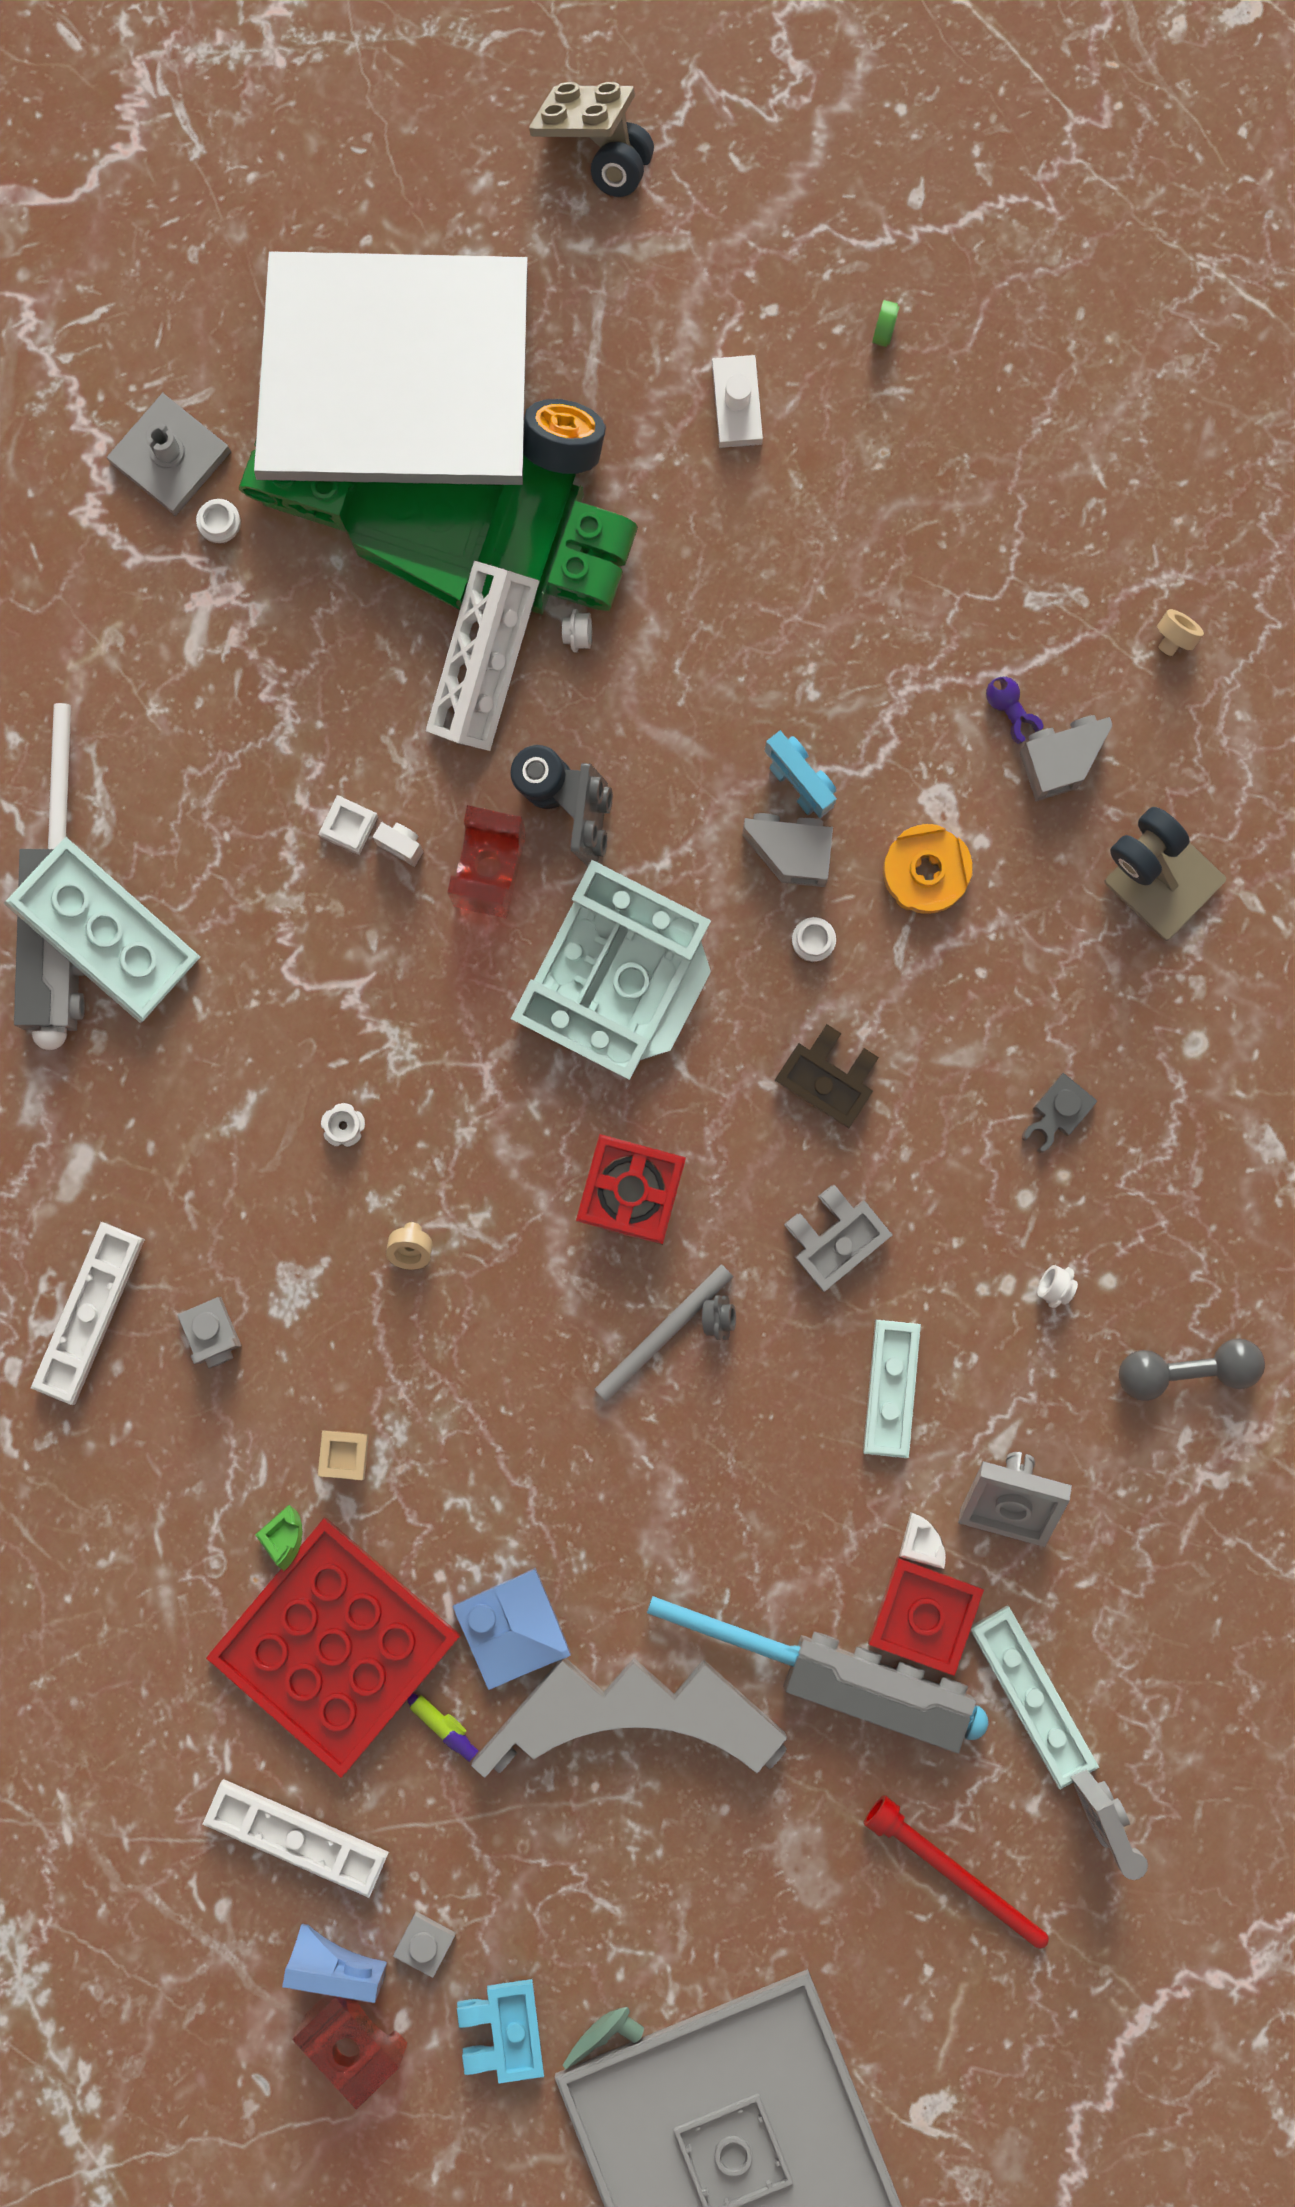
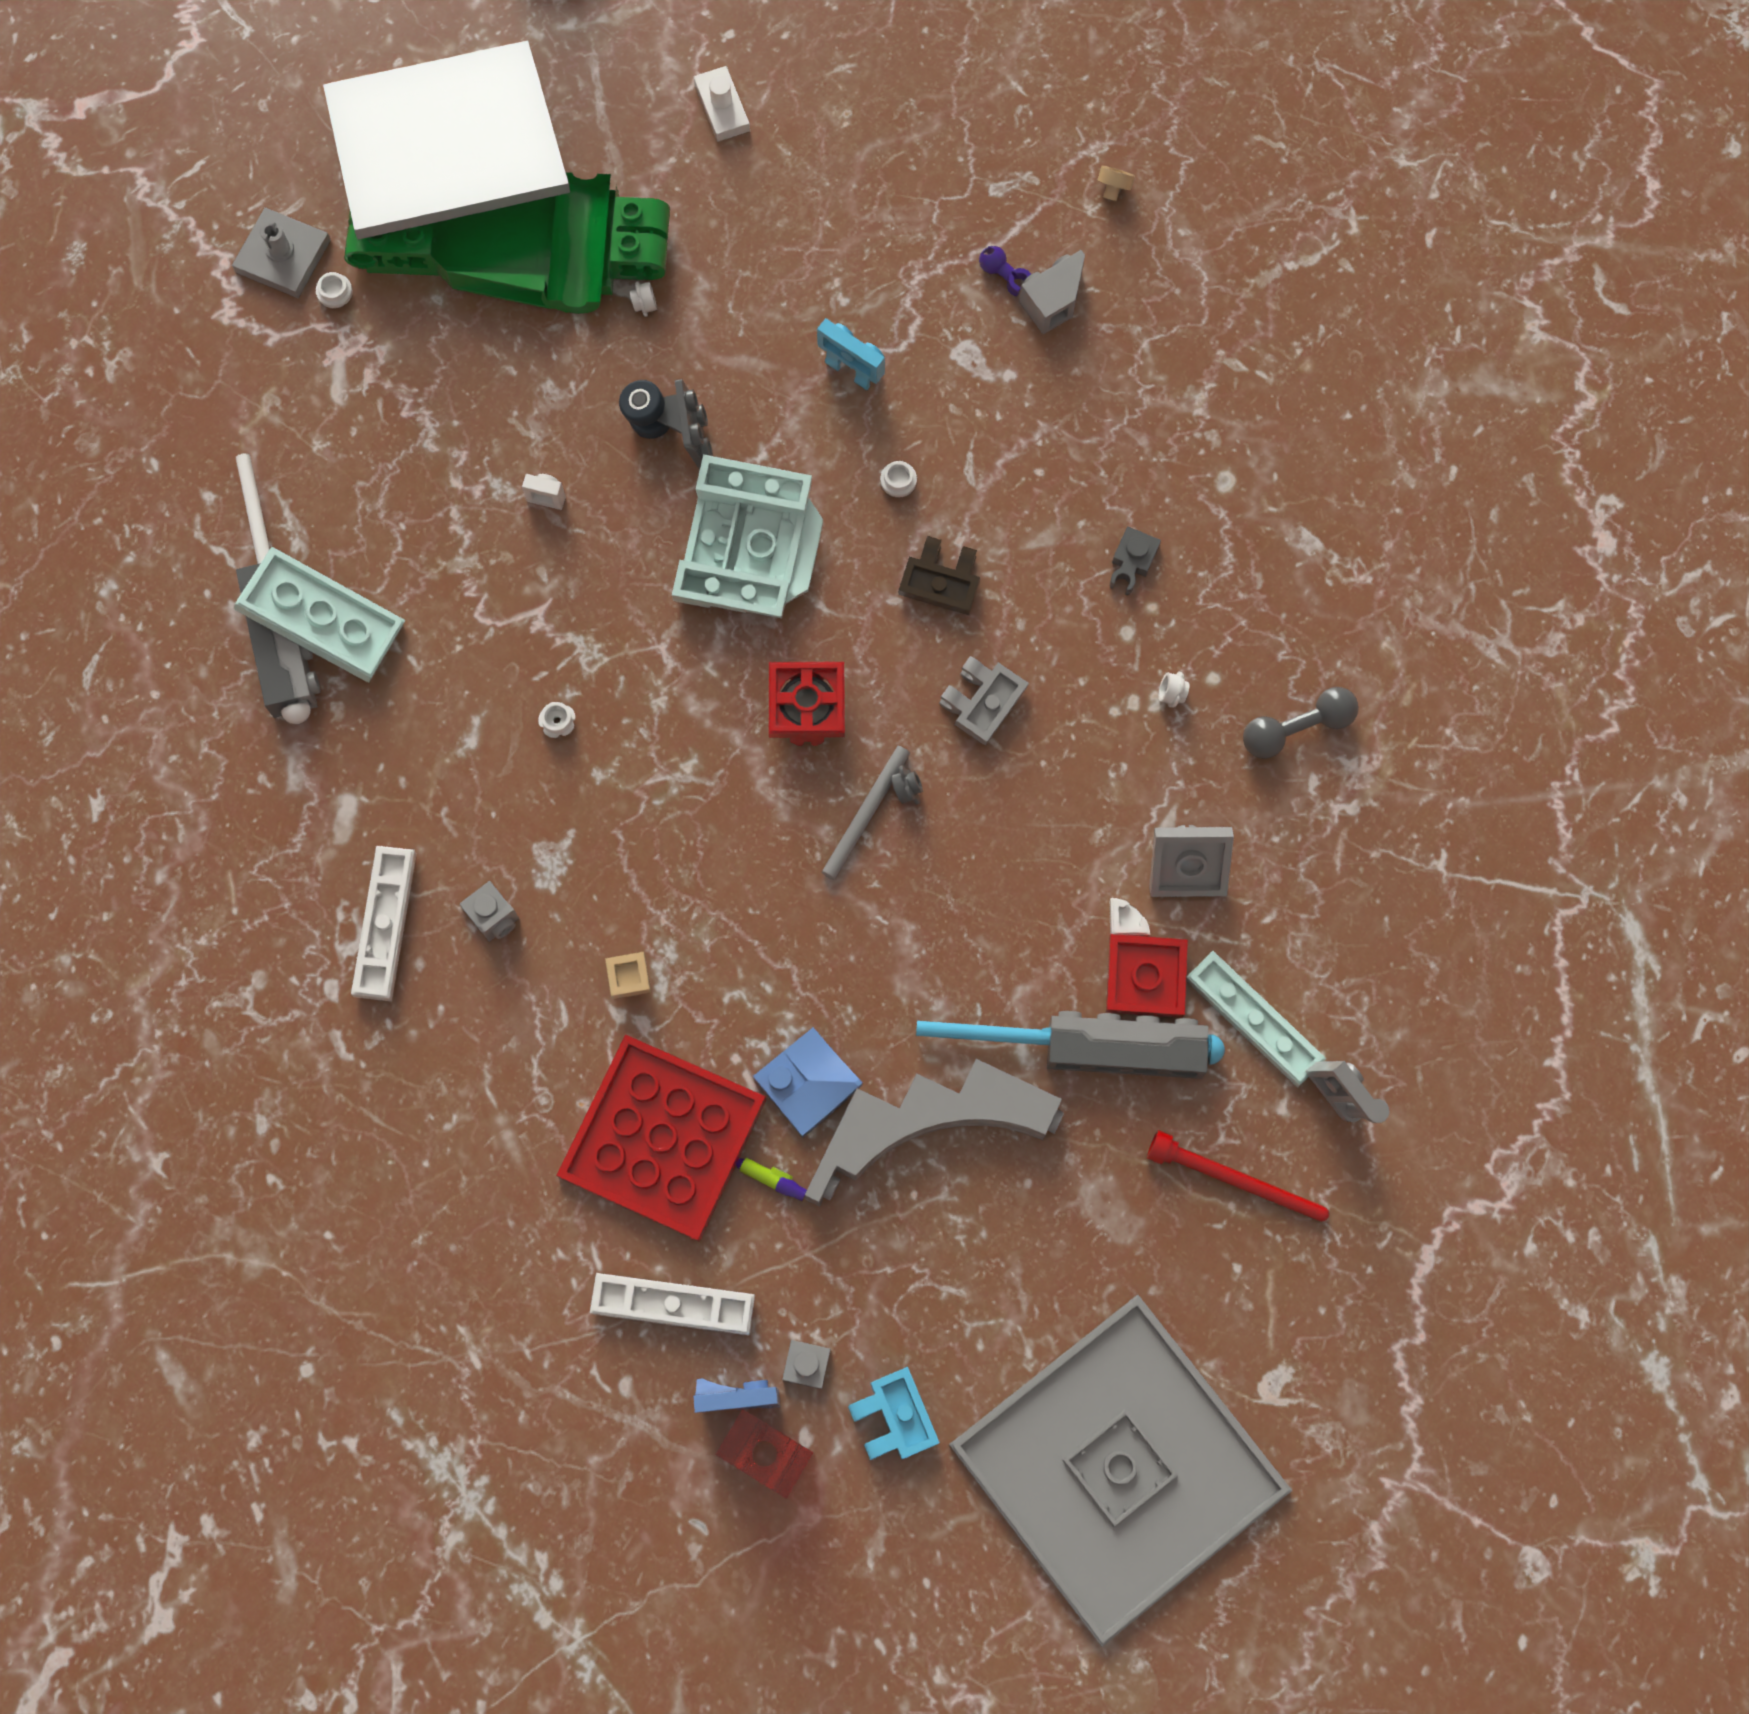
camera: 15 degrees left, 10 degrees down
(282, 1537) = (594, 1059): bright green tile -> none
(348, 825) = (499, 490): white tile -> none
(409, 1247) = (638, 799): tan tile -> none
(488, 657) = (578, 330): white fence -> none
(488, 835) = (618, 464): clear red piece -> none
(563, 436) = (592, 156): black wheel -> none
(602, 2031) = (978, 1393): sand green bar -> none
(791, 850) = (860, 415): light grey slope -> none
(885, 323) = (820, 18): bright green tile -> none
(891, 1388) = (1064, 806): light aqua tile -> none
(941, 848) = (969, 422): light orange plate -> none
(1162, 873) = (1156, 357): dark tan plate -> none

